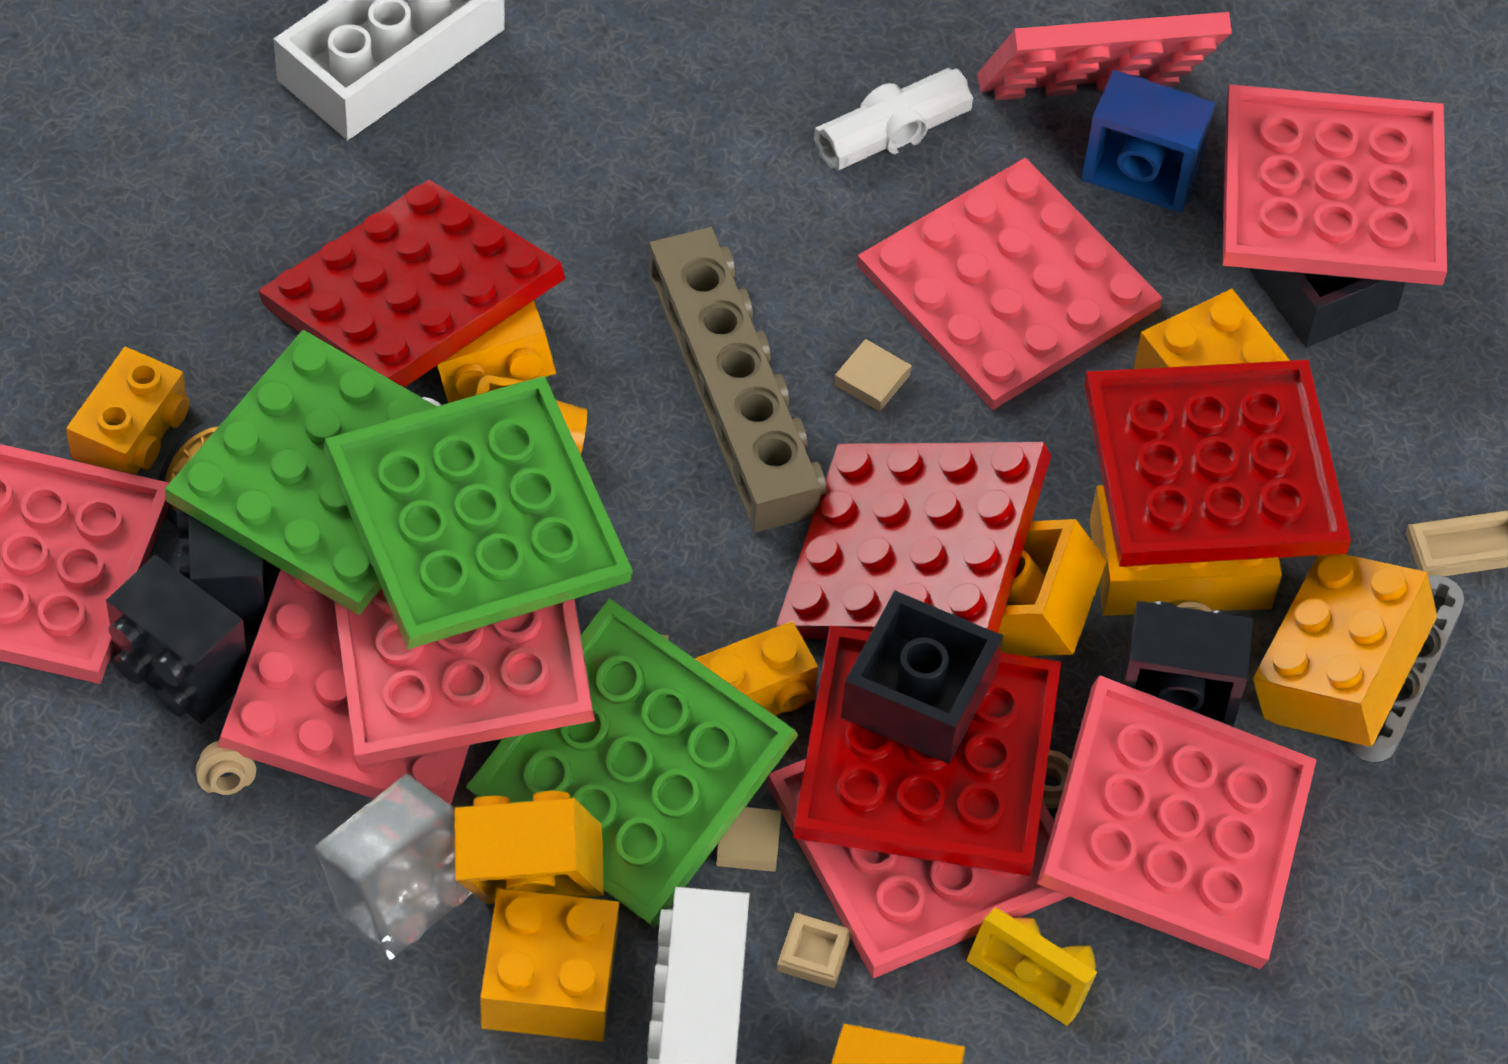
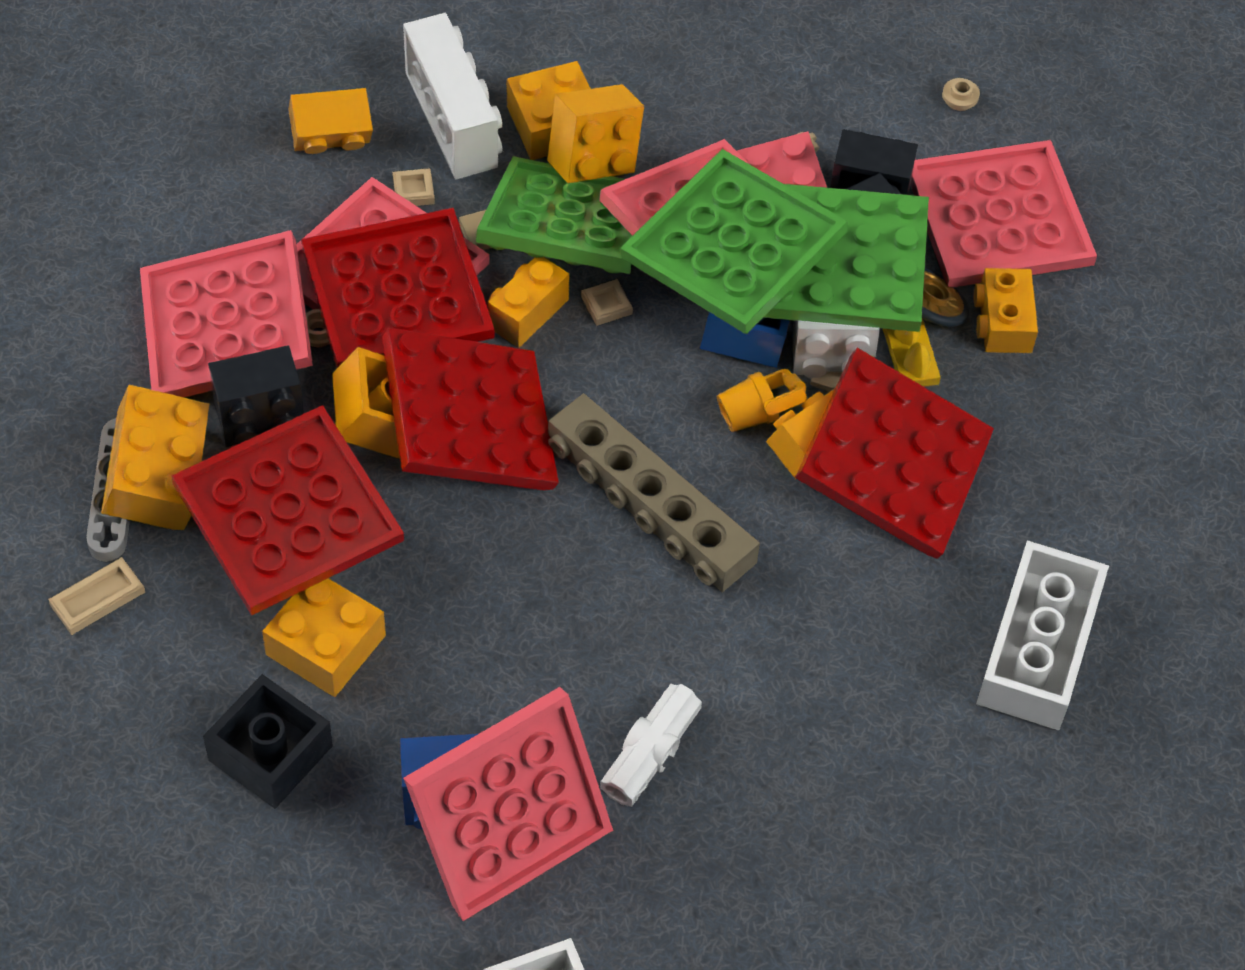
camera: 155 degrees right, 0 degrees up
(394, 866) = (667, 102): clear brick -> none
(872, 375) = (562, 545): tan tile -> none
(921, 676) = (414, 284): black brick -> none
(1009, 283) = (498, 649): coral plate -> none
(1033, 966) = (264, 214): yellow tile -> none
(1335, 185) = (283, 767): coral plate -> none

